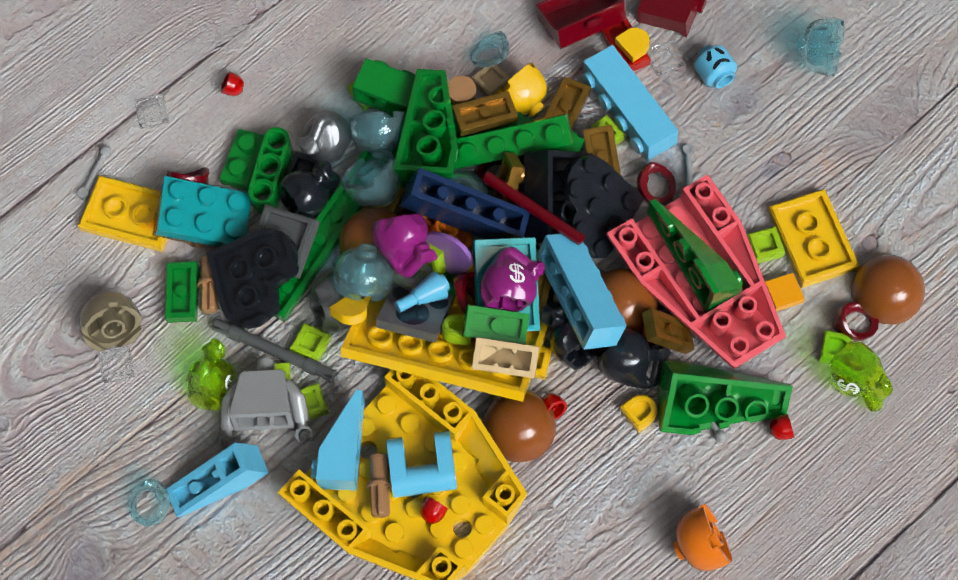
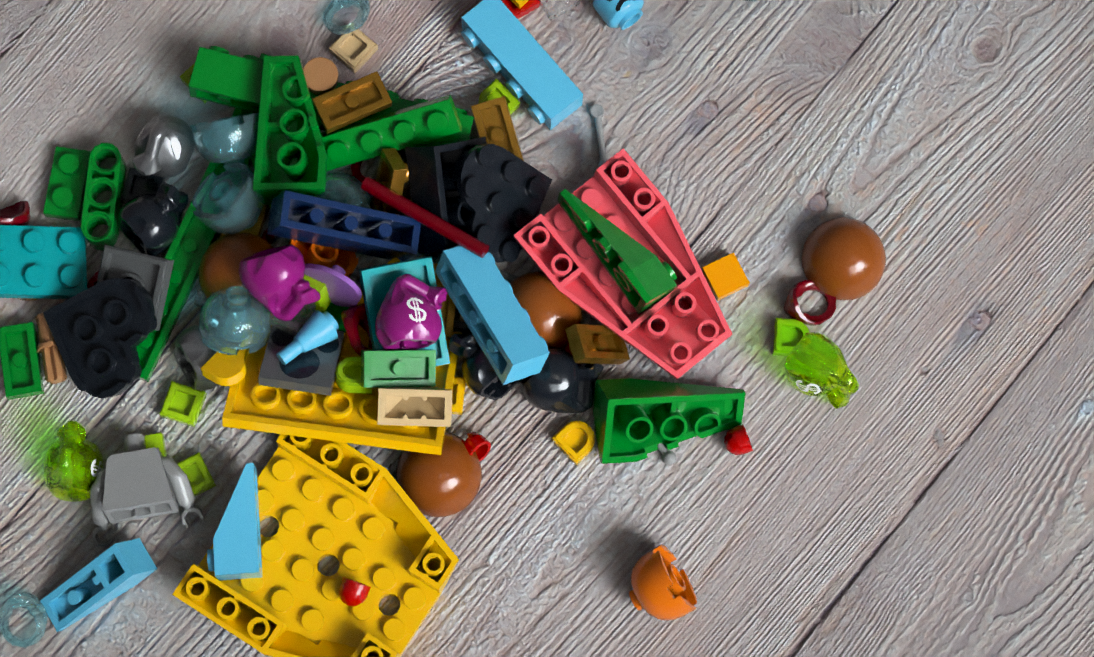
camera: 15 degrees left, 10 degrees up
(232, 84) = (39, 89): red hinge -> none
(307, 364) = (183, 431): dark grey piece -> none
(379, 485) = (288, 570): medium nougat axle -> none
(422, 478) = (337, 555): medium azure connector -> none
(527, 90) = (396, 62): yellow cylinder -> none
(569, 99) = (447, 70): pearl gold plate -> none
(642, 180) = (548, 156): dark red piece -> none
(766, 245) = (698, 221): lime tile -> none
(813, 238) = (752, 205): yellow tile -> none

